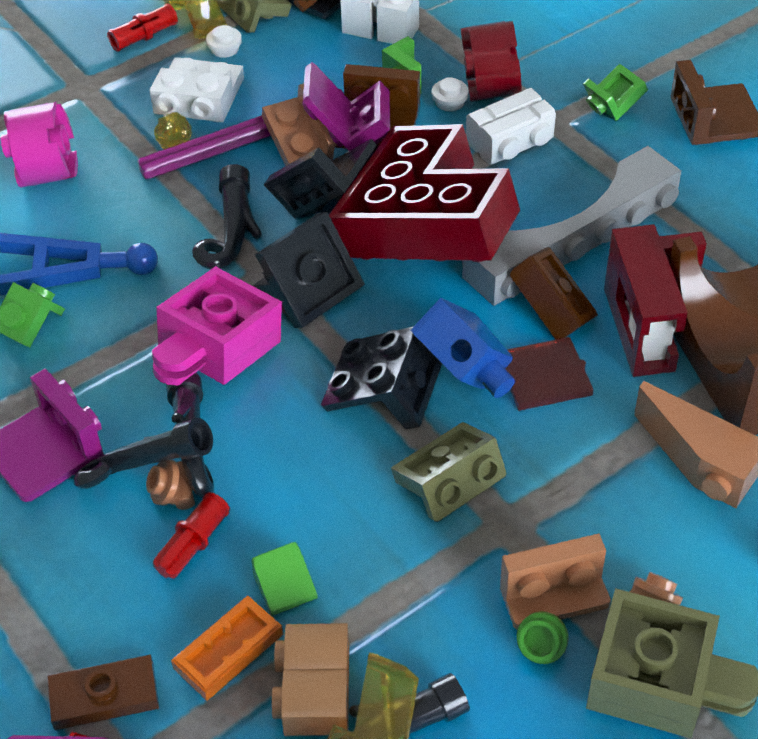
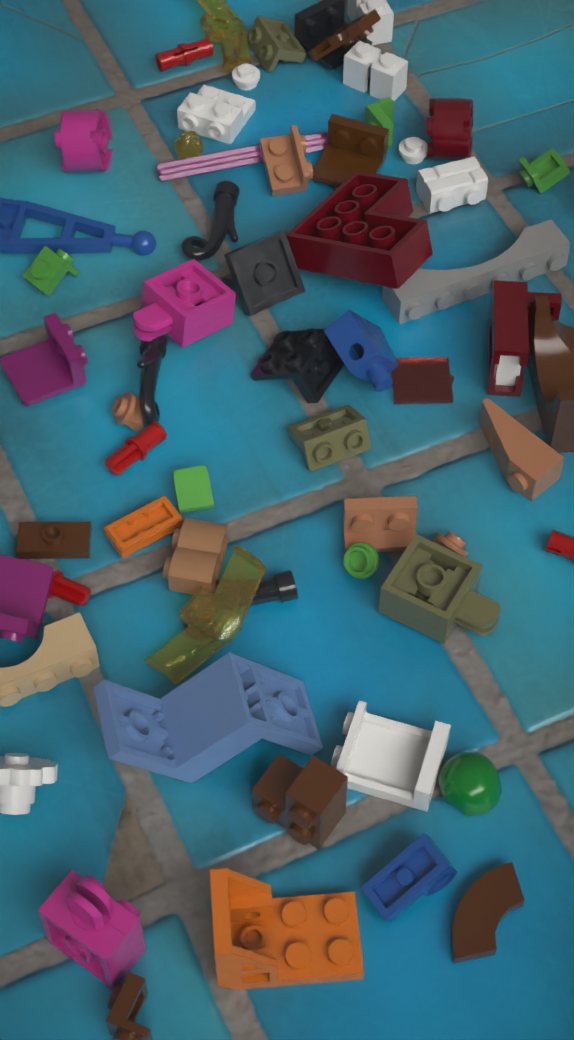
camera: 10 degrees right, 5 degrees up
(185, 440) = (144, 381): black plant -> none
(317, 179) = (284, 204): black bracket -> none
(346, 121) = (322, 161): magenta bracket -> none
(553, 293) = (443, 321): reddish brown slope -> none

